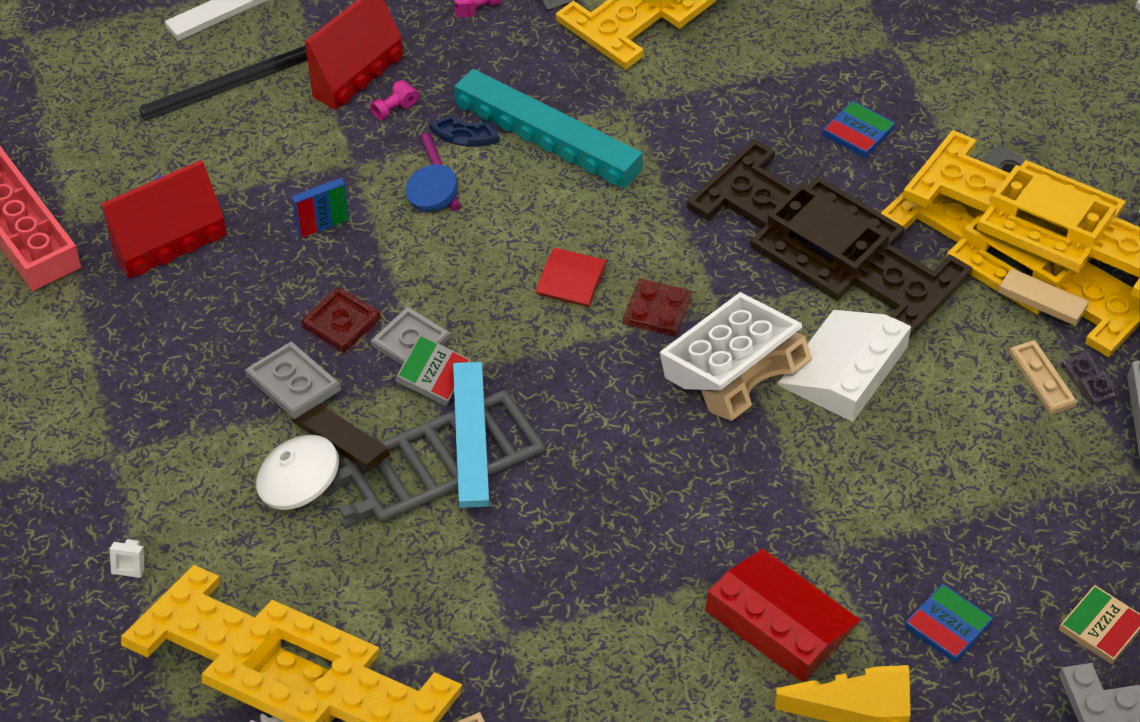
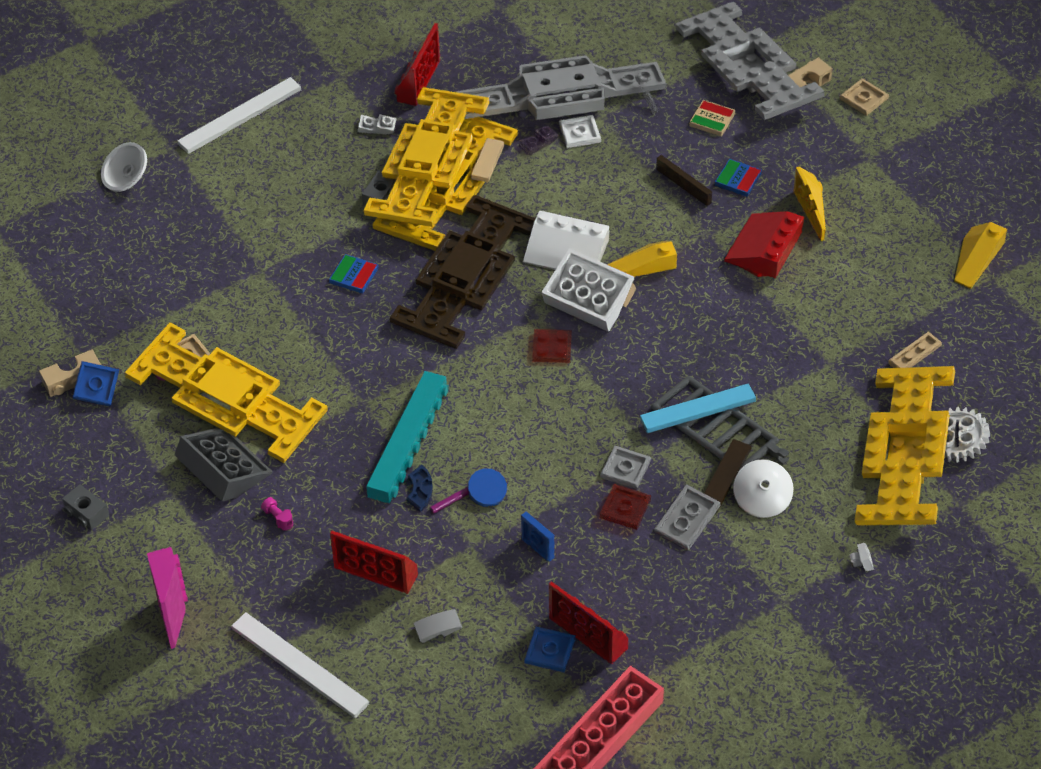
camera: 105 degrees left, 0 degrees up
(223, 83) = (400, 641): black axle -> none
(246, 107) = (437, 624): none -> light grey slope
(402, 95) = (398, 530): dark pink leg -> none
(430, 370) = (652, 444): tile -> none
(571, 277) = (542, 393): red slope -> none
(792, 449) = (648, 259): none -> yellow wedge
(950, 538) = (684, 180): none -> dark brown tile
(1042, 377) = (543, 160): tan tile -> none
(1102, 436) = (580, 131): none -> white tile

